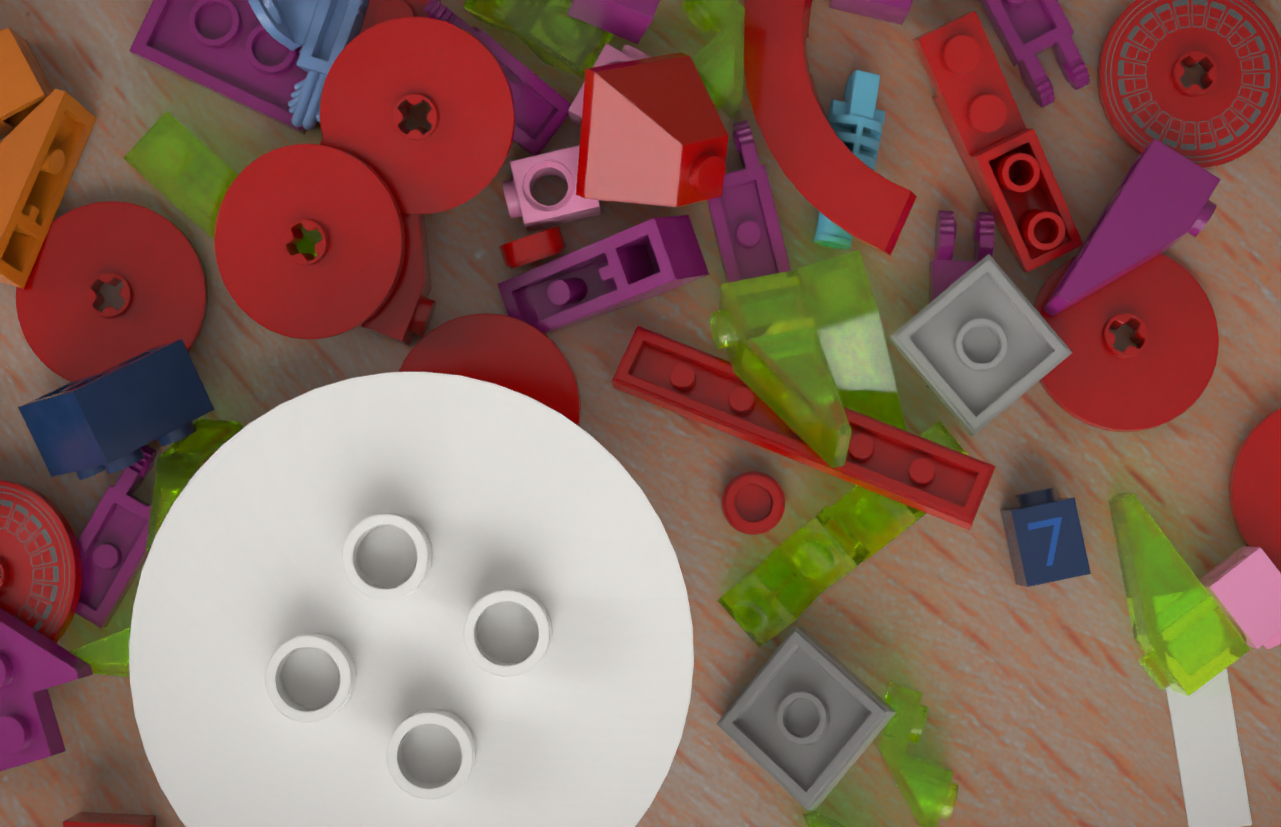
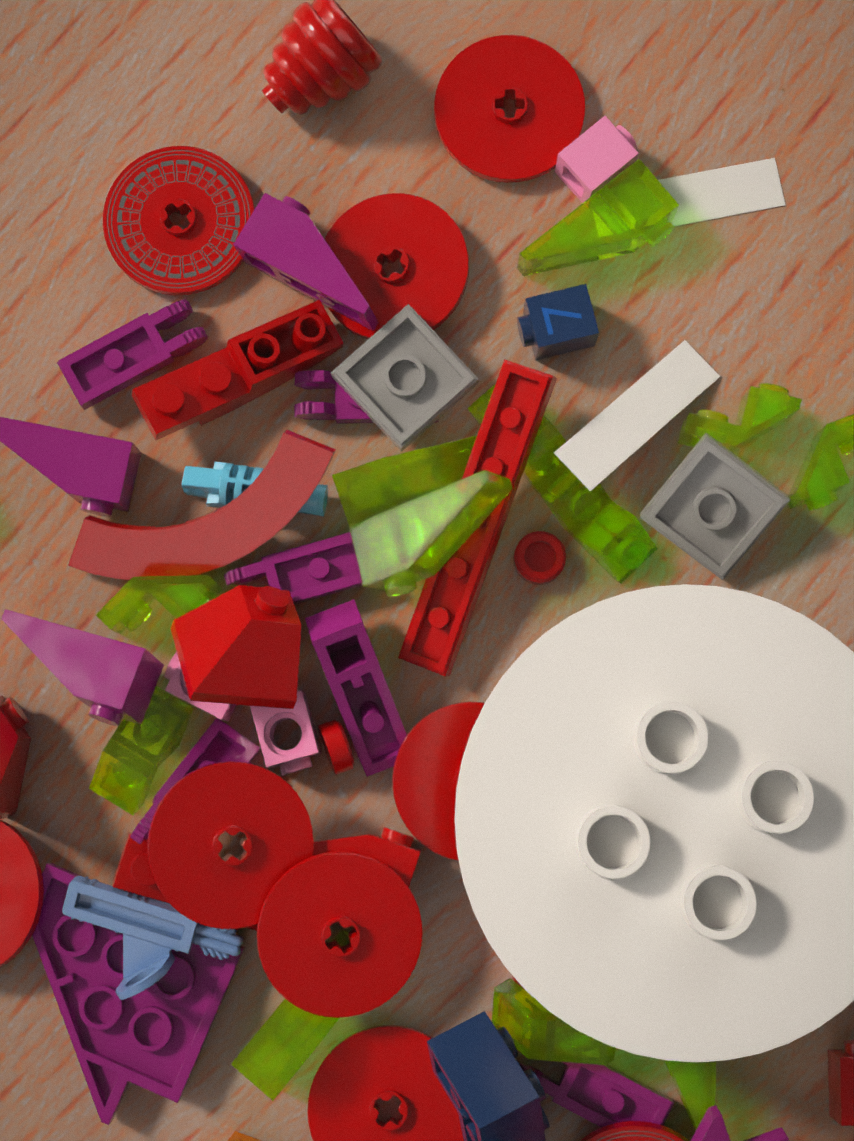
camera: 90 degrees left, 5 degrees down
(924, 630) = (636, 415): none -> white sticker

